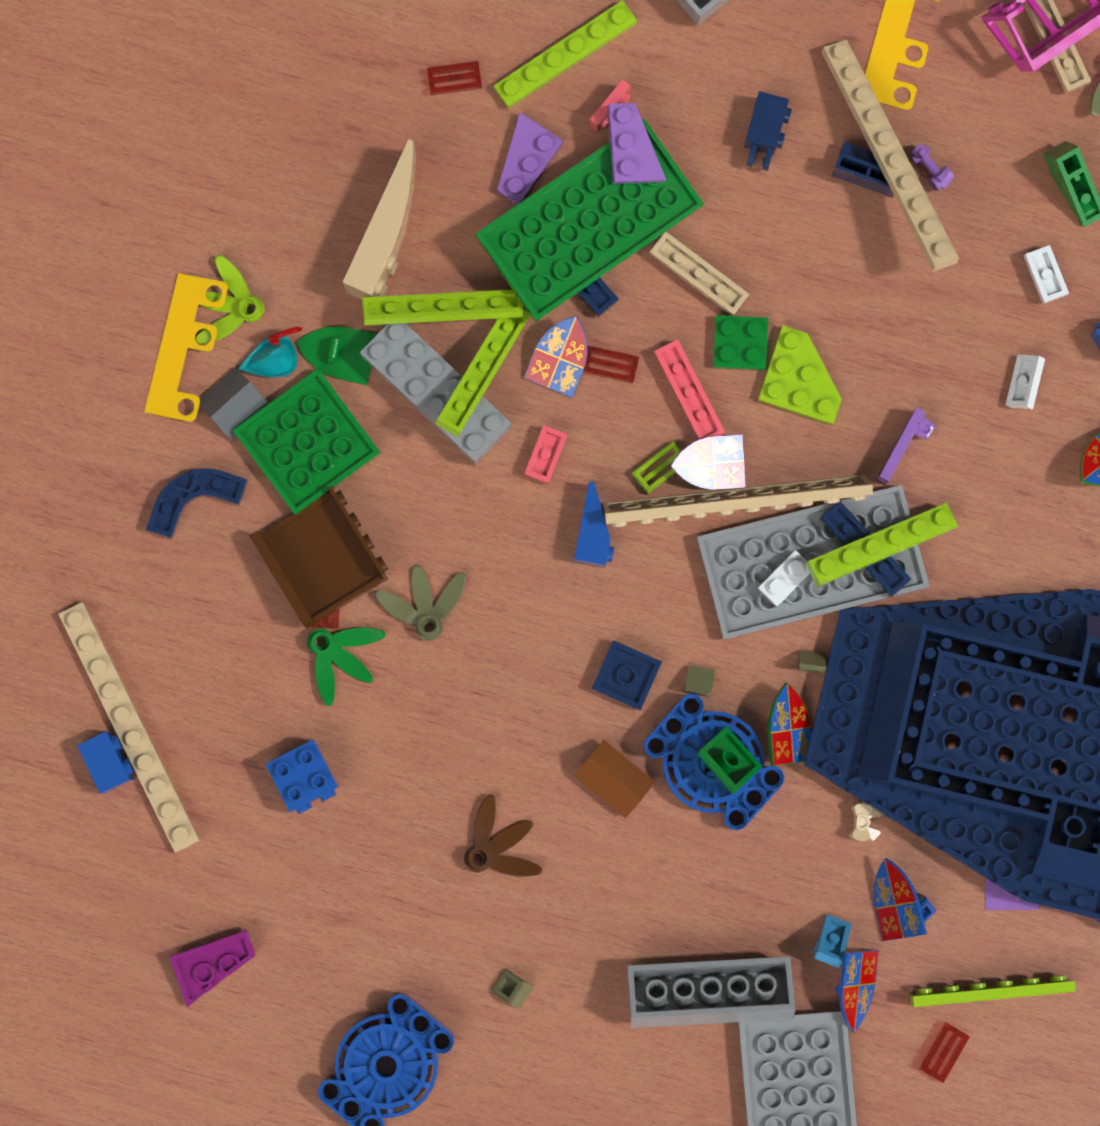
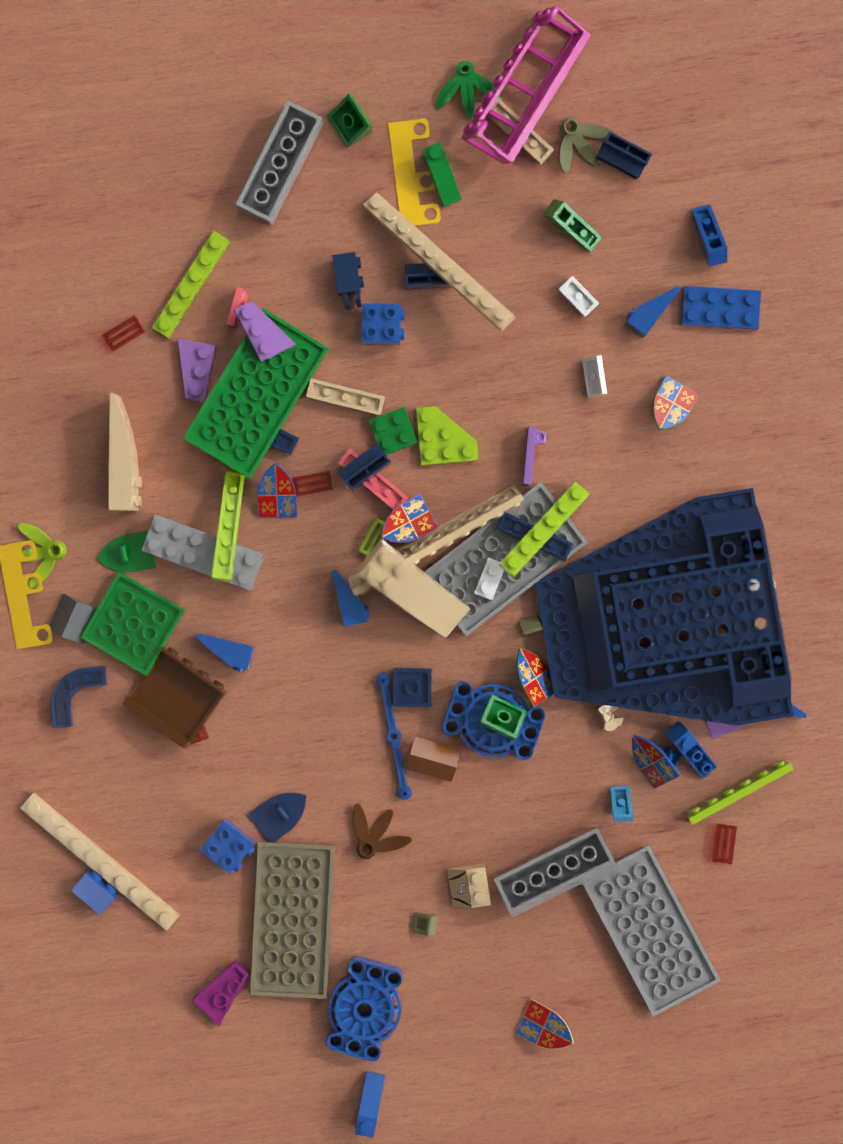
camera: 25 degrees left, 5 degrees up
(273, 357) = (85, 576): teal piece -> none
(333, 651) = (222, 756): green plant -> none
(342, 909) = (292, 919): none -> dark tan plate
(384, 766) = (279, 814): none -> dark blue shield
(418, 533) = (231, 652): none -> blue slope
(425, 613) = (262, 702): olive plant -> none
(441, 307) = (182, 497): lime plate -> none
(546, 454) = (295, 563): coral plate -> none
(590, 964) = (469, 886): none -> tan slope
(593, 651) = (404, 791): none -> blue piece
(684, 547) = (412, 588): none -> tan slope
(687, 370) = (364, 467): none -> dark blue piece
(699, 681) = (461, 670): olive slope -> none
(784, 203) = (382, 324): none -> blue brick
(857, 985) = (649, 826): shield -> none
(937, 50) = (441, 174): none -> green slope
(940, 177) = (479, 260): medium lavender bar -> none
(951, 909) = (690, 749): none -> blue slope

